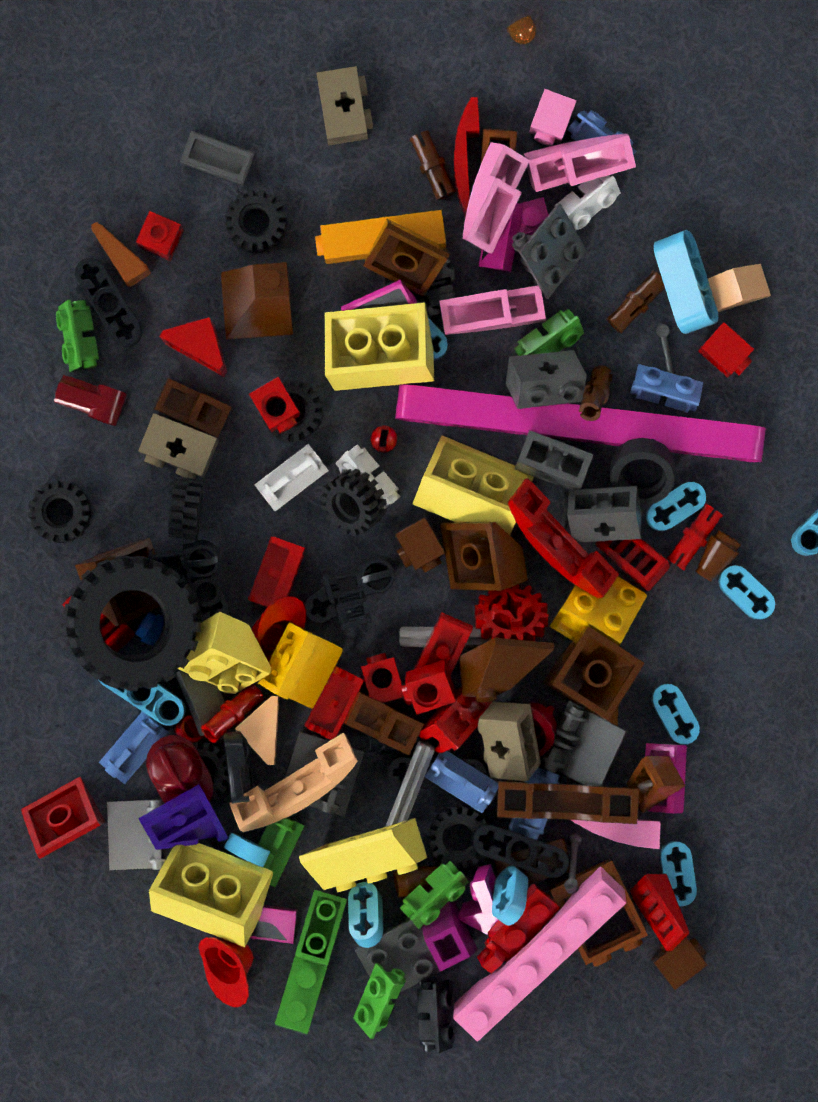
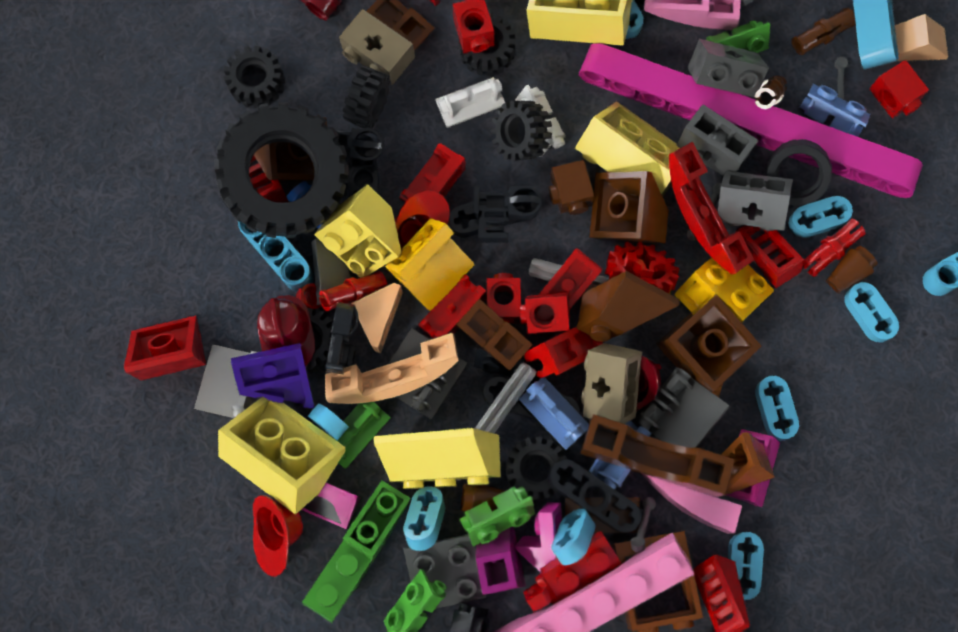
camera: 20 degrees right, 10 degrees down
(132, 747) = (246, 304): medium blue hinge -> none
(391, 439) = (568, 94): red hinge -> none

